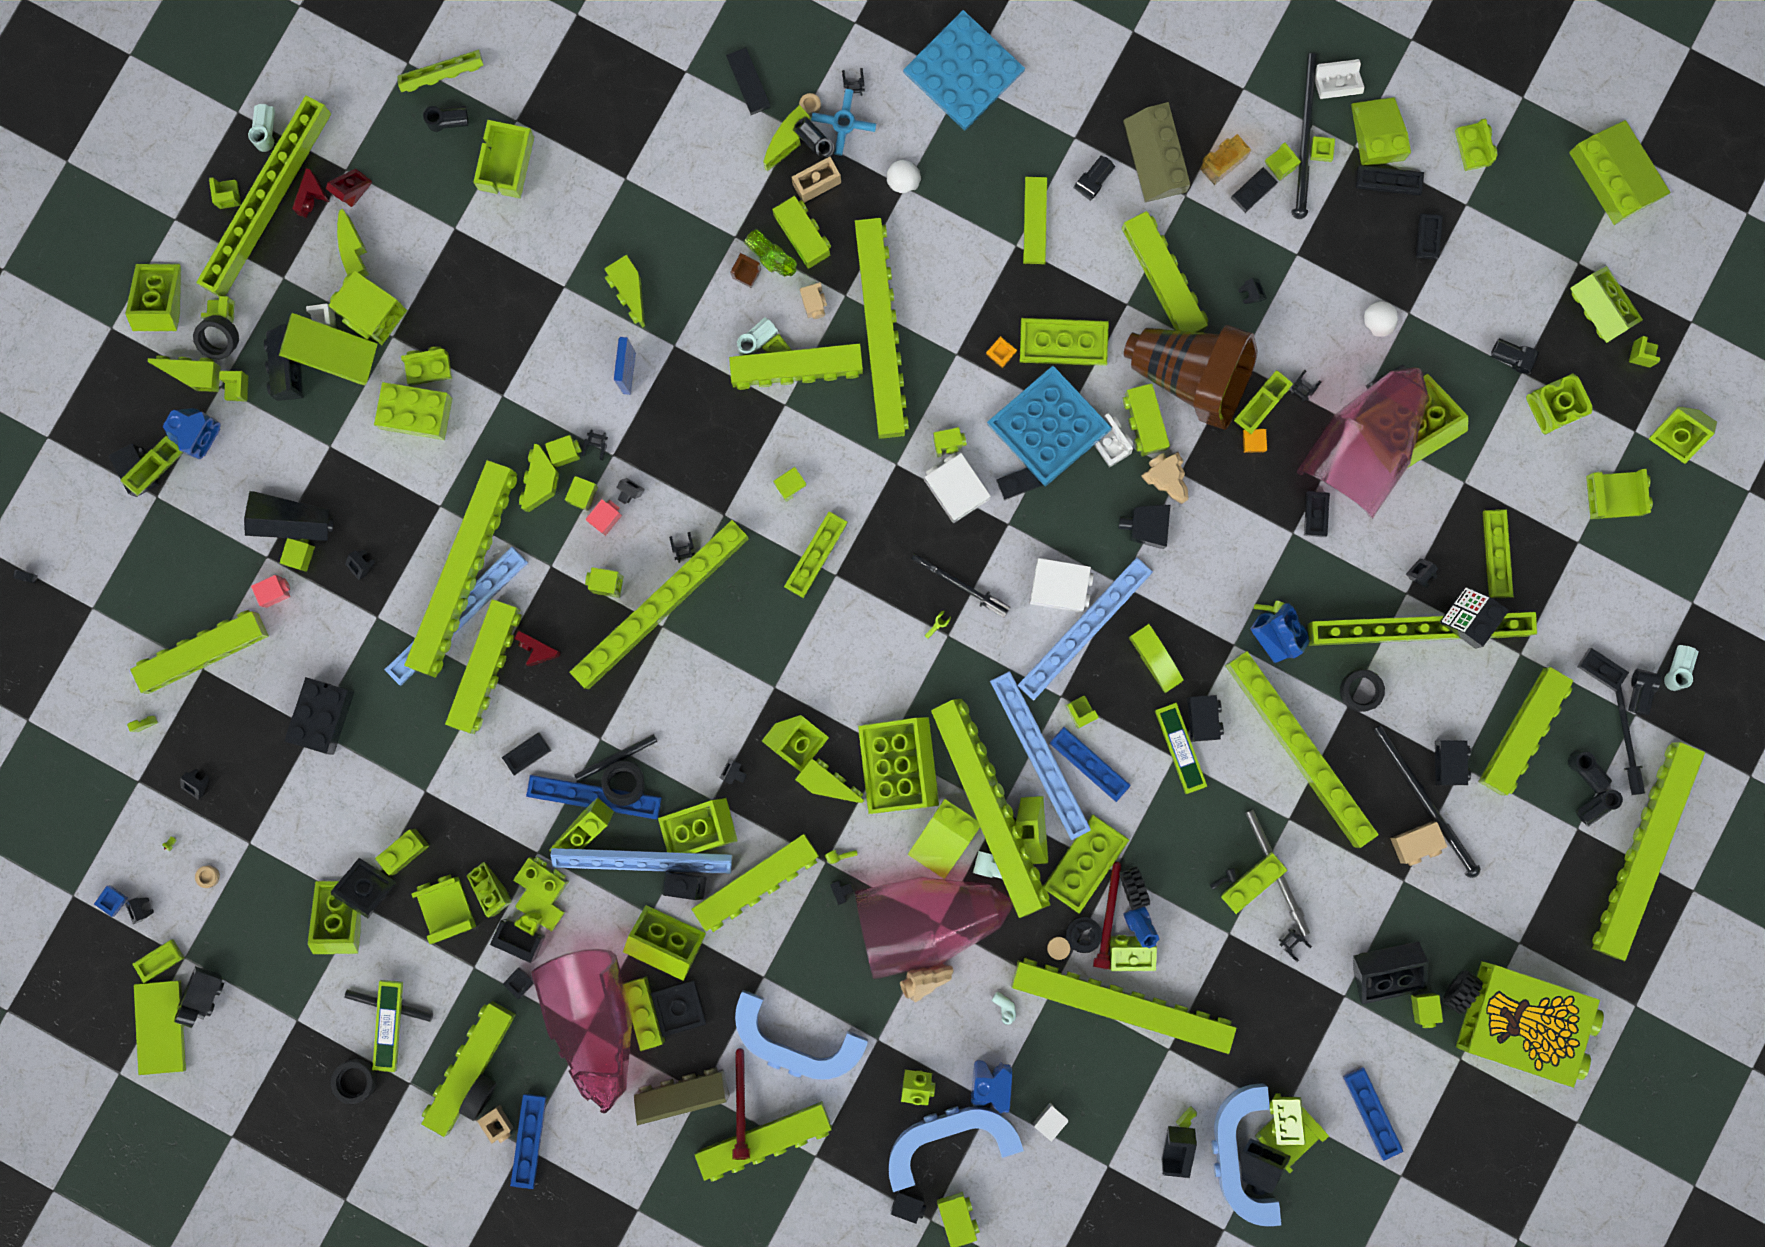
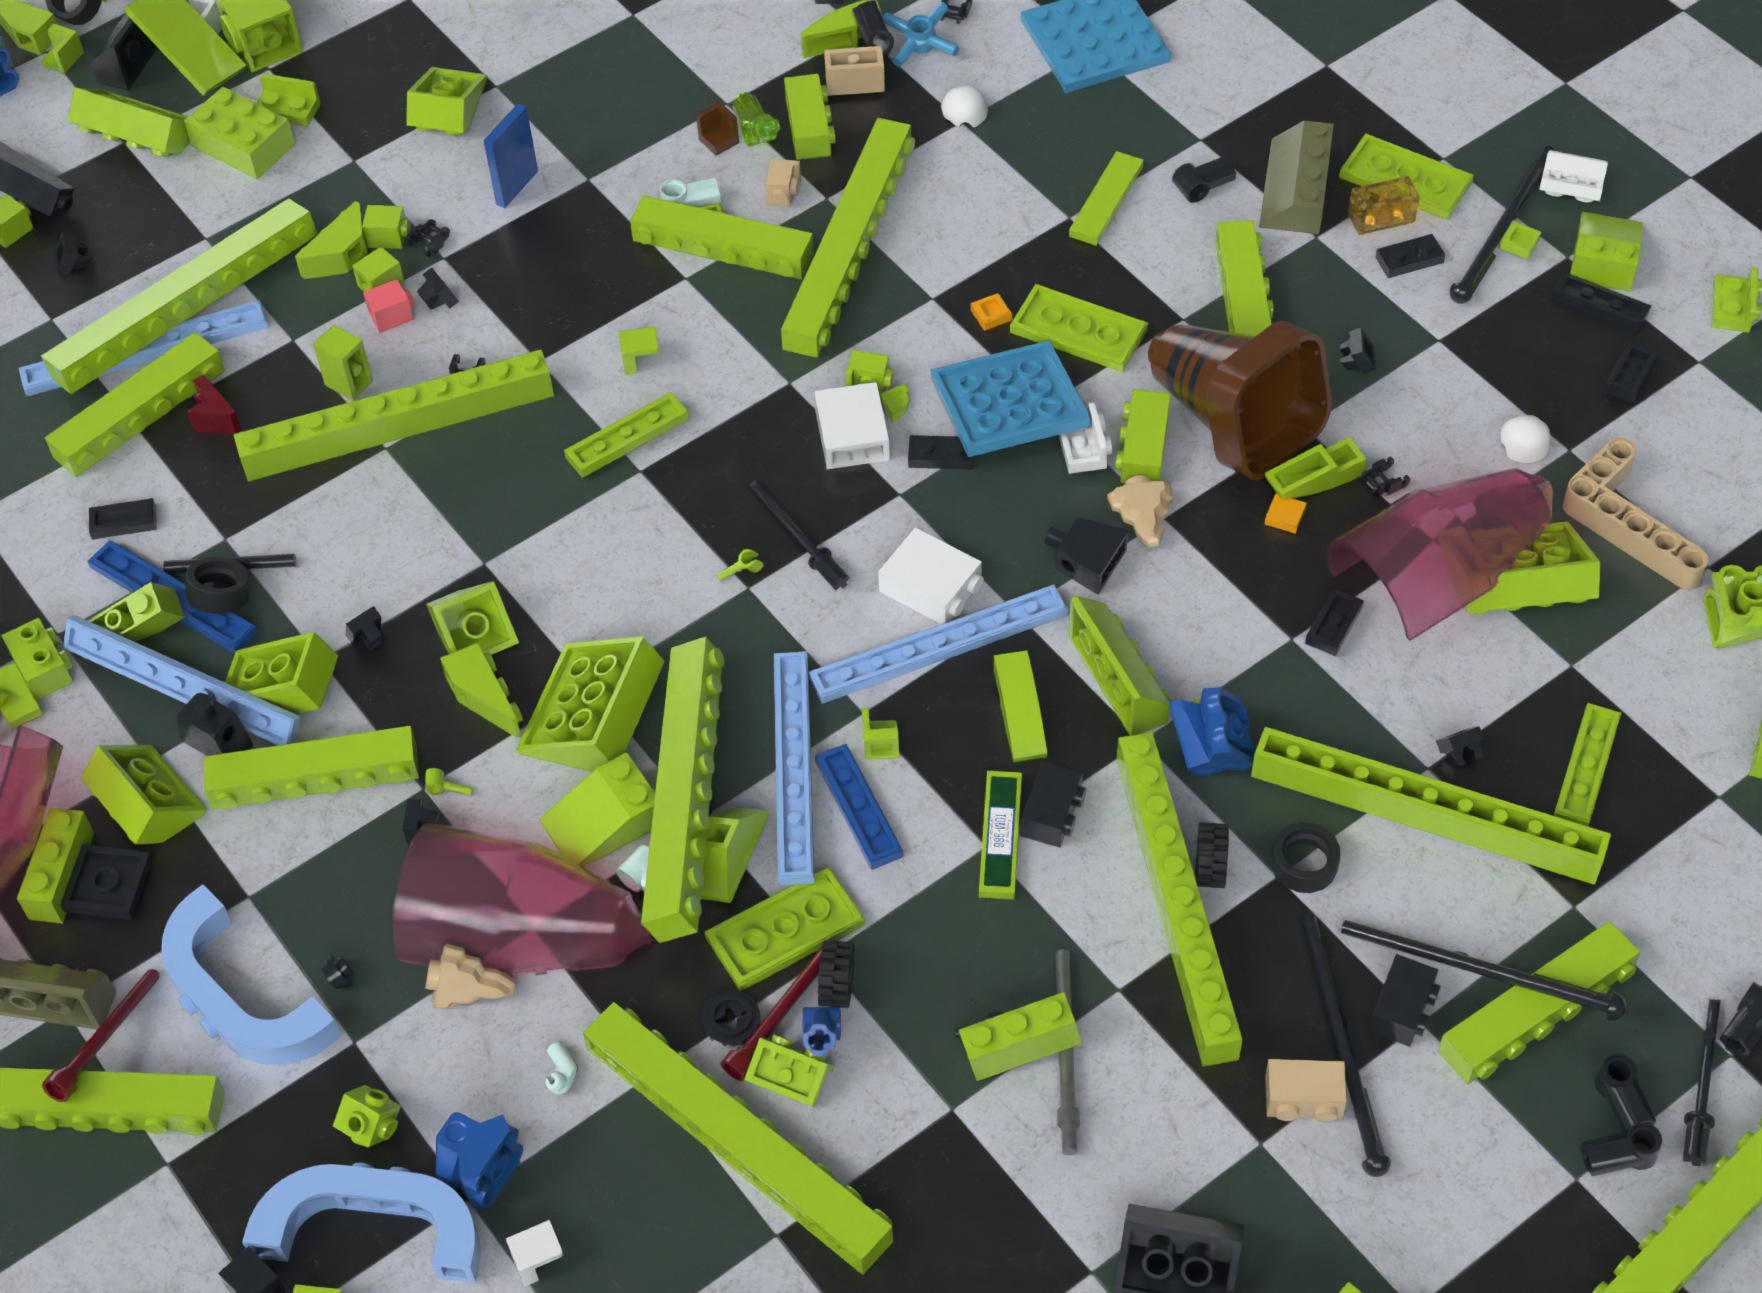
camera: 25 degrees right, 30 degrees down
(329, 429) = (129, 120): none -> lime slope
(539, 318) = (444, 100): none -> lime slope
(628, 282) = (570, 102): lime slope -> none
(810, 103) = (893, 7): tan tile -> none
(847, 1006) = (337, 971): none -> black plate
(973, 453) = (895, 402): none -> lime tile
(1058, 948) = (684, 1022): tan tile -> none
(1204, 606) = (1117, 666): none -> lime slope
(1225, 116) = (1437, 183): none -> lime tile
(1282, 162) = (1463, 240): lime panel -> none
(1288, 950) = (1055, 1154): black piece -> none
(1312, 717) = (1212, 855): none -> black tyre
(1462, 359) = (1596, 506): none -> tan beam
(1473, 617) = (1511, 800): black slope -> none
(1520, 357) = (1716, 542): black piece -> none
(1539, 729) = (1613, 1005): none -> black bar
(1603, 669) = (1697, 966): black plate -> none

